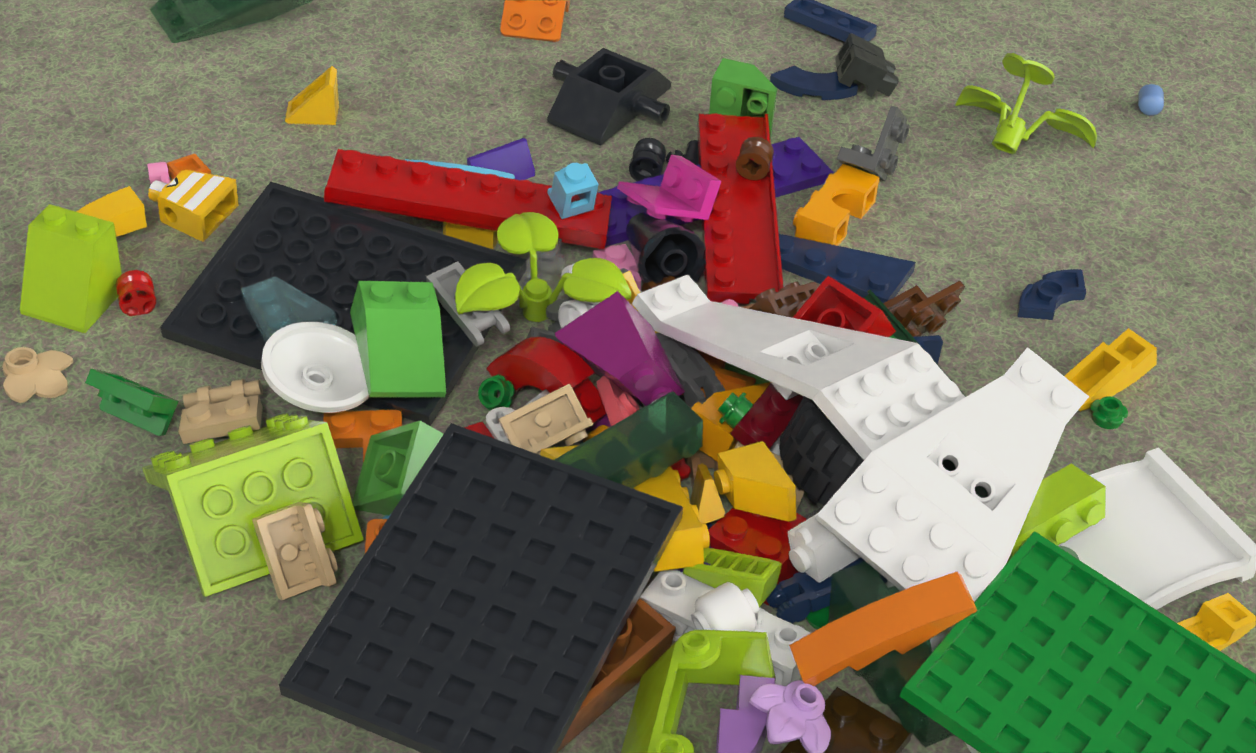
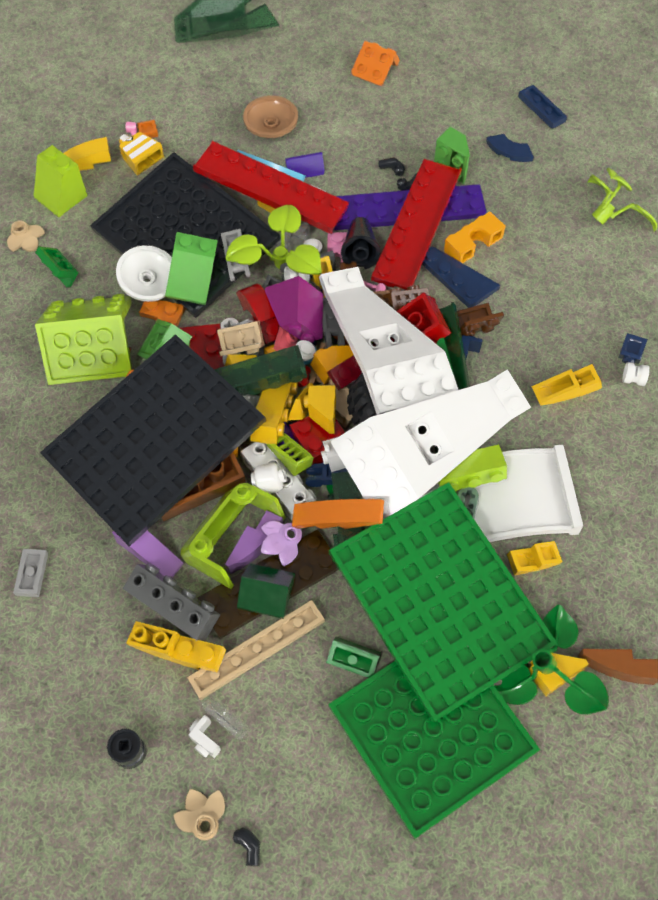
camera: 25 degrees right, 20 degrees up
(130, 300) = (88, 201): red wheel -> none
(220, 410) = (96, 286): tan plate -> none
(279, 304) = (148, 232): clear light blue wing -> none
(295, 549) = (90, 374): tan bracket -> none
(317, 102) = (229, 101): yellow slope -> none
(407, 108) = (270, 116): none -> medium nougat dish
(488, 392) = (234, 308): green plate -> none
(572, 181) = (321, 193): medium azure brick -> none
(606, 95) = (384, 131): black slope -> none
(630, 138) = (393, 163): none -> black arm
(647, 159) = (386, 180): black wheel -> none
(684, 192) = (379, 214): dark pink bracket -> none
(734, 409) = (332, 360): green plate -> none
(762, 154) = (436, 198): reddish brown wheel -> none
(866, 64) = (542, 145): pearl dark grey hips -> none
(884, 158) = (515, 211): dark grey bracket -> none
(1047, 294) = (567, 324): dark blue tile -> none
(1108, 412) = (555, 415): green plate -> none
(1168, 300) = (632, 349): none -> dark blue bracket
(1196, 331) = (635, 374): none -> white wheel

